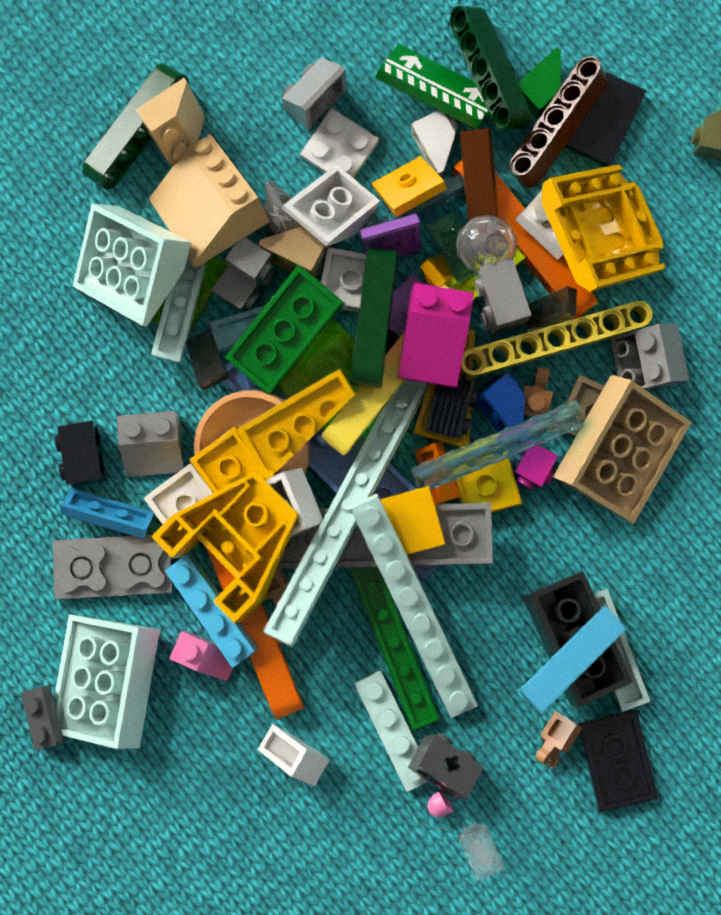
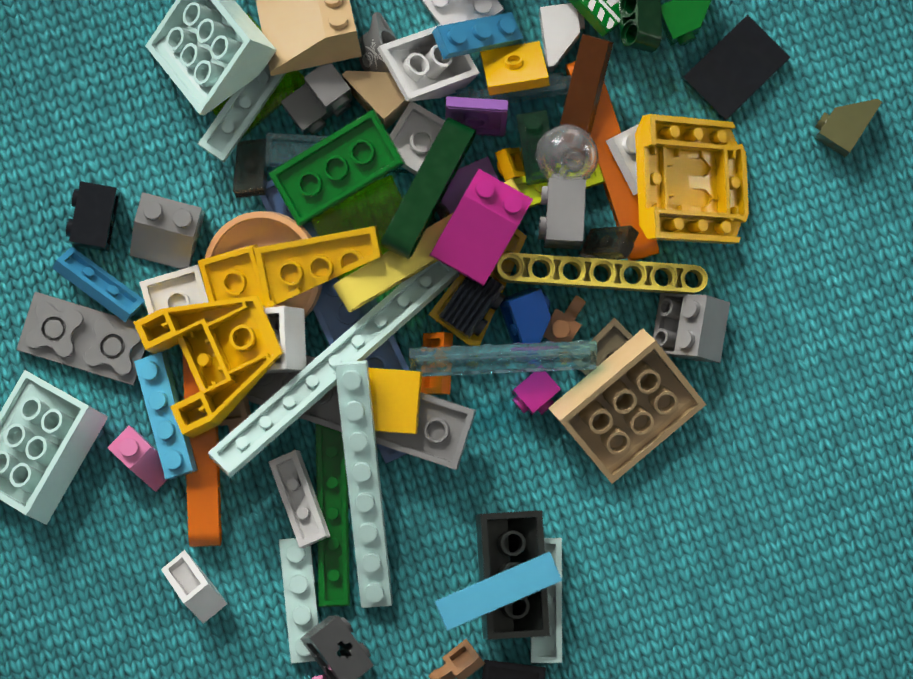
camera: 15 degrees right, 0 degrees up
(359, 640) = (299, 499): none -> white plate
(365, 168) = (477, 35): none -> dark azure plate
(490, 484) = (485, 393): yellow plate -> none
(561, 109) = (693, 45): reddish brown beam -> none

